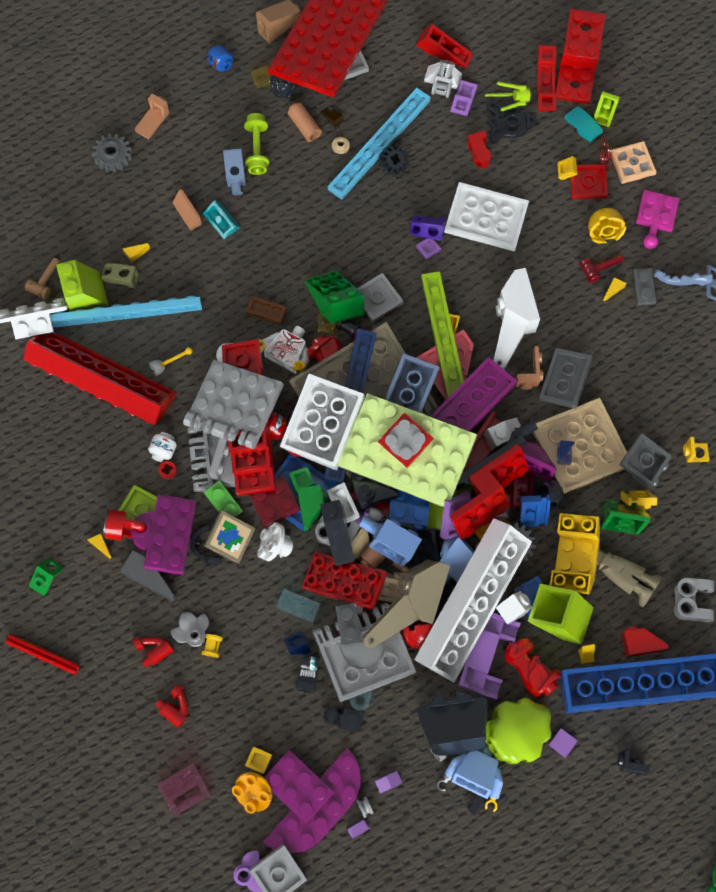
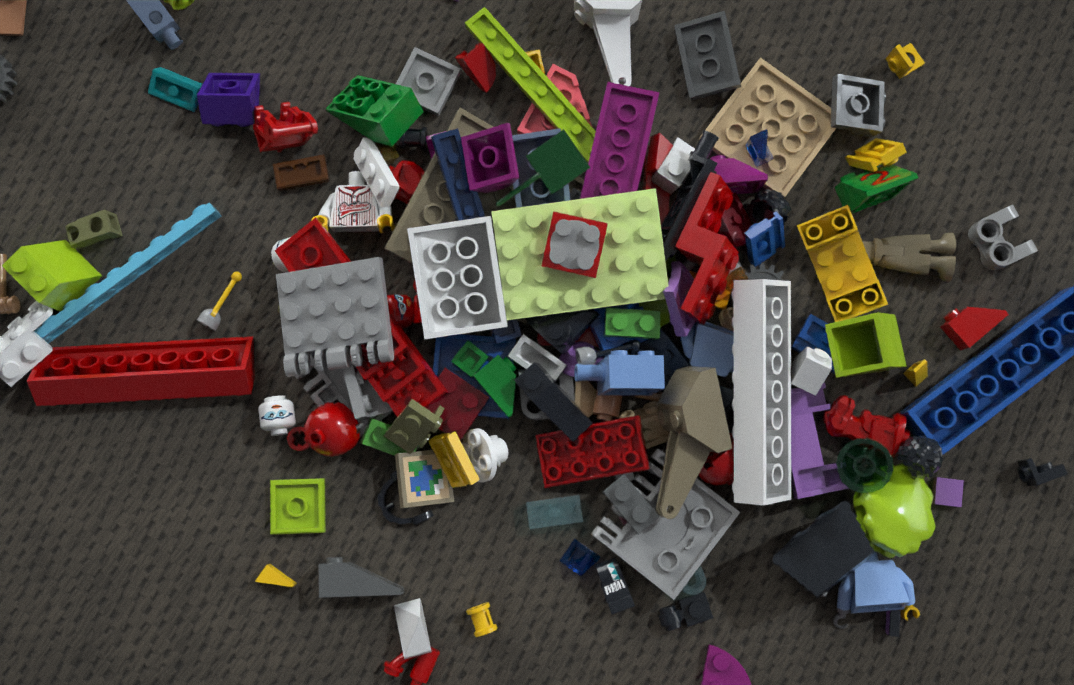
camera: 30 degrees left, 10 degrees up
(44, 576) = (229, 657): green bracket -> none
(136, 251) = (94, 189): yellow piece -> none
(160, 532) = (338, 523): magenta plate -> none
(165, 625) = (412, 628): none -> white slope
(187, 210) = (126, 101): nougat slope -> none
(188, 627) = (442, 609): light grey plate -> none
(190, 474) = (331, 429): none -> red cylinder
(241, 498) = (413, 426): none -> olive bracket
(249, 242) = (229, 98): none -> dark purple slope
(254, 534) = (453, 460): none -> yellow plate
(273, 281) = (290, 130): none -> red piece
(312, 333) = (376, 172): none -> white plate
(384, 362) = (490, 159): none -> magenta slope
(388, 782) = (780, 656): medium lavender piece -> none
(415, 305) = (478, 66): none -> red brick
(415, 512) = (632, 323): none -> bright green plate
(423, 385) = (555, 163): none -> dark green piece
(498, 416) = (658, 151): none -> red piece
(514, 685) = (856, 474): none -> clear green cylinder
(527, 381) = (667, 82): nougat bracket -> none
(553, 702) = (921, 456): none -> black piece

